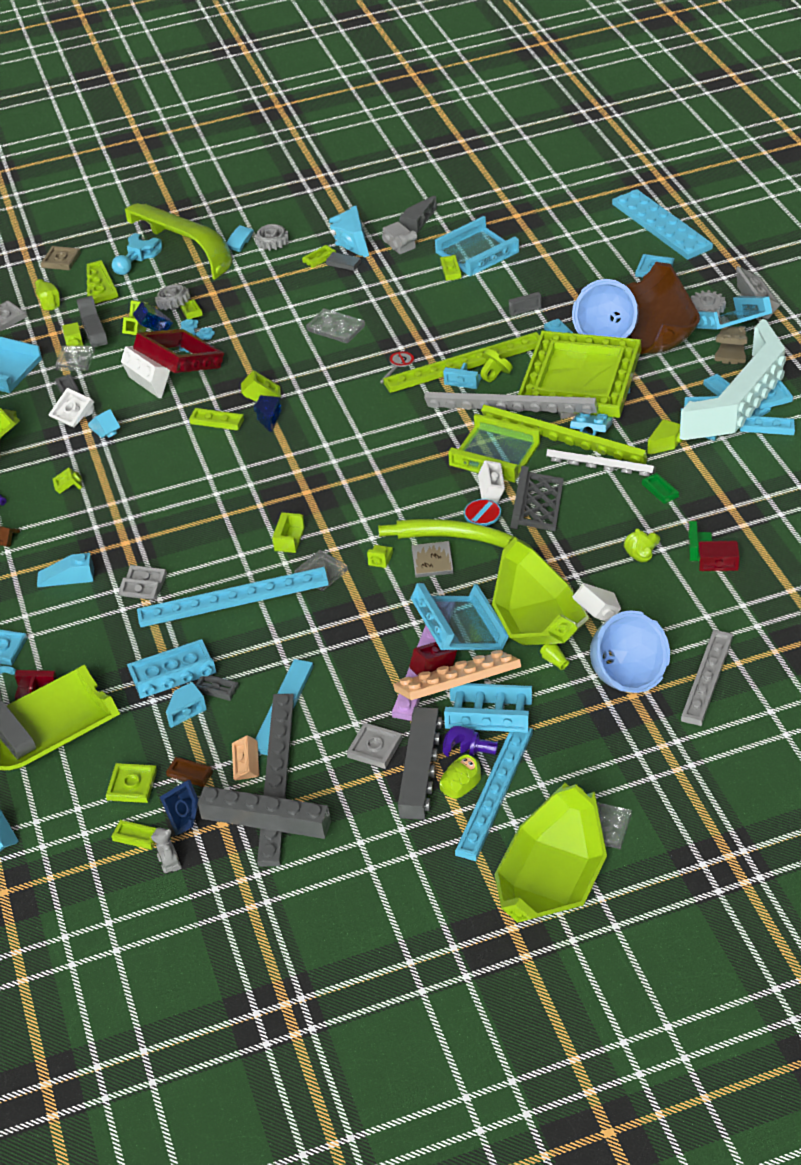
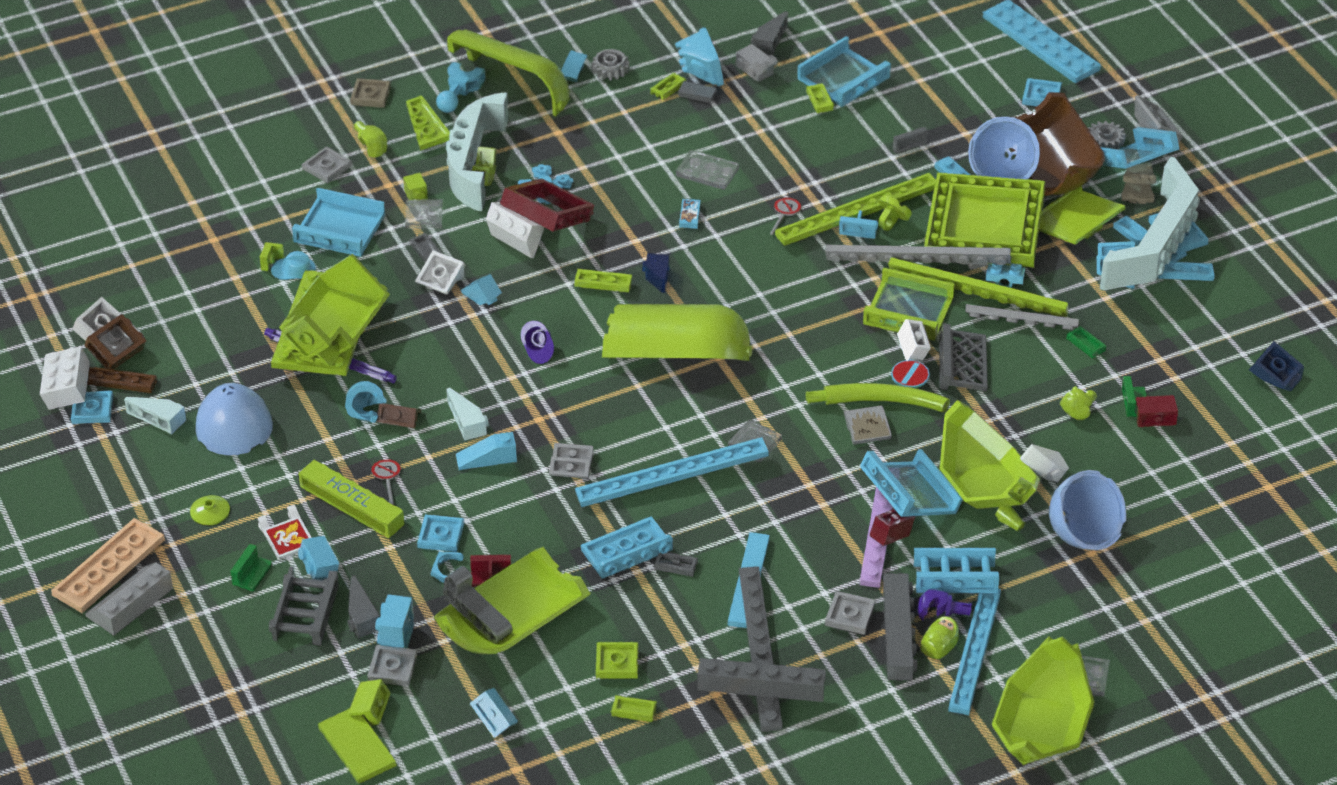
camera: 10 degrees left, 0 degrees up
(57, 538) = (467, 416): none -> light aqua slope
(66, 479) = (458, 353): lime bracket -> none
(91, 322) = (434, 173): dark grey beam -> none
(131, 285) = (466, 136): none -> light aqua slope
(140, 471) = (537, 342): none -> dark purple piece
(151, 318) = (504, 166): clear blue slope -> none
(166, 850) = (671, 721): light grey animal -> none
(172, 297) = (516, 139): light grey gear -> none
(181, 807) = (678, 679): dark blue slope -> none
(185, 704) = (652, 581): medium azure slope -> none
(188, 770) = (671, 647): reddish brown tile -> none
(191, 309) = (540, 153): lime tile -> none
(245, 758) = (724, 631): light nougat slope -> none
(257, 385) = (640, 242): lime slope -> none
(268, 466) = (676, 332): none -> lime panel
(288, 532) = (712, 402): lime panel -> none
(311, 363) = (689, 213): none -> tile
(379, 556) = (812, 423): lime bracket -> none
(459, 674) = (918, 541): light nougat plate -> none
(664, 437) = (1084, 287): lime slope -> none
(669, 372) = (1077, 215): none -> lime container
(707, 678) = (1161, 532): light grey plate -> none

